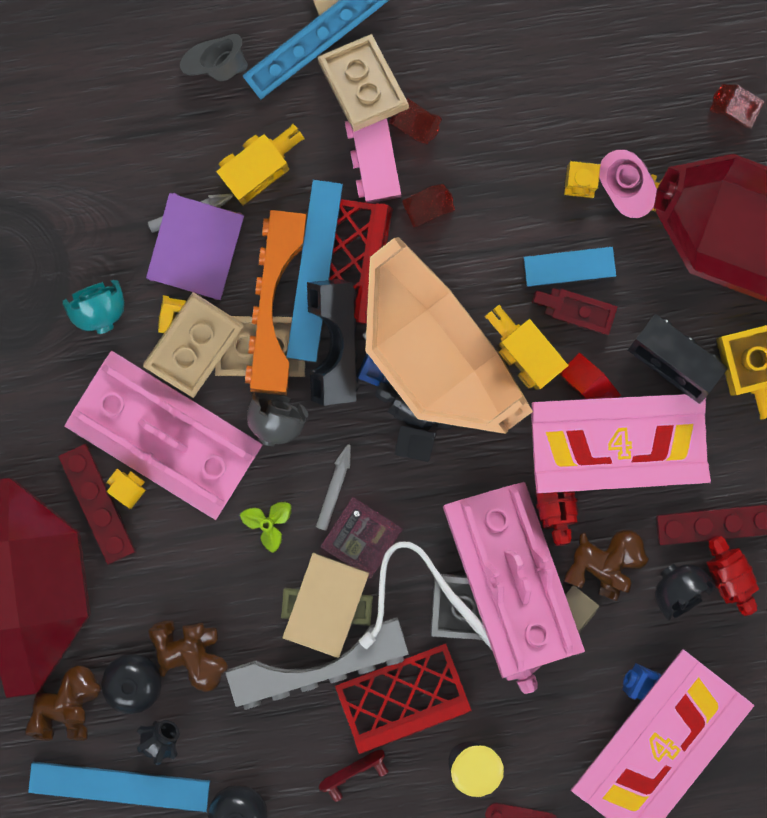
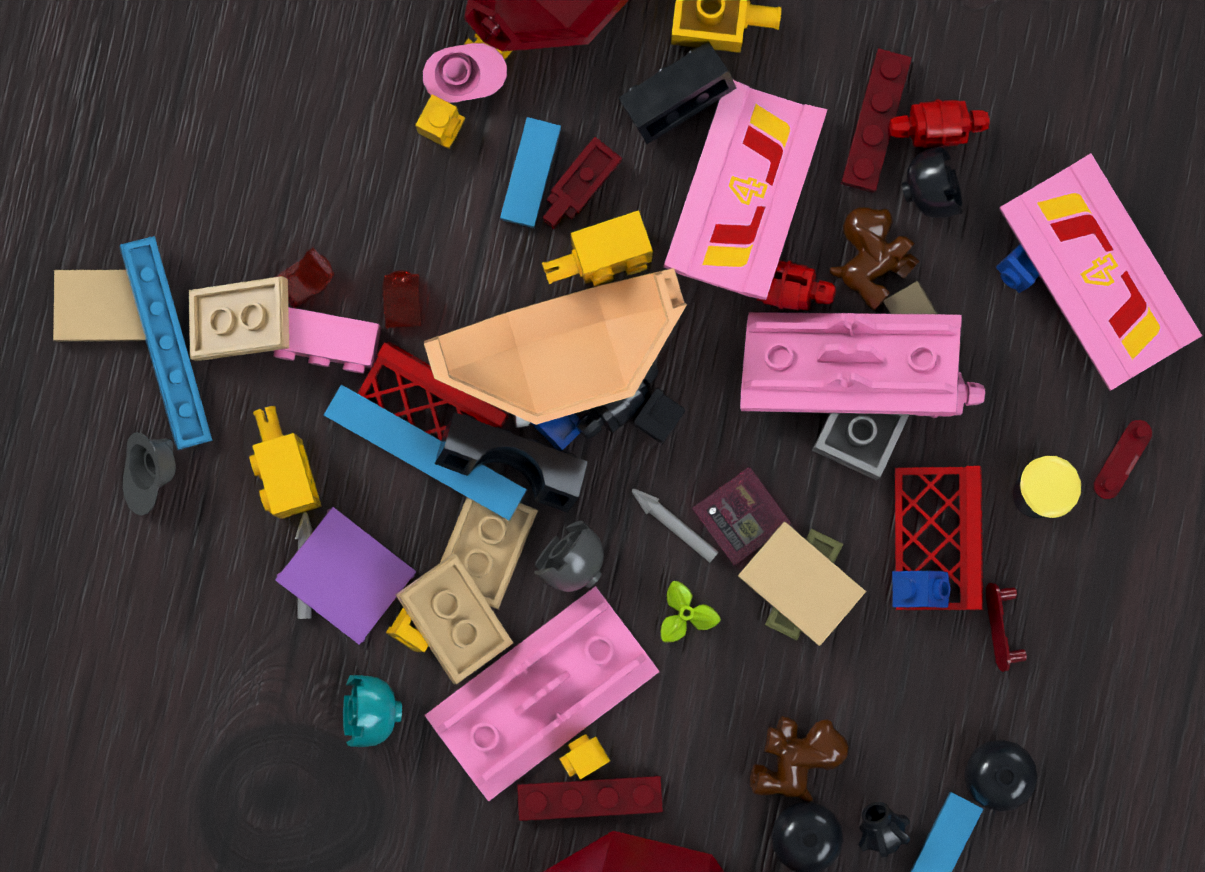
camera: 65 degrees left, 5 degrees down
(258, 681) = (858, 693): light grey arch -> none
(284, 242) = (507, 539): orange arch -> none
(356, 700) = (920, 589): none -> blue bracket
(369, 638) = (886, 421): white piece -> none
(588, 379) = (662, 199): red slope -> none

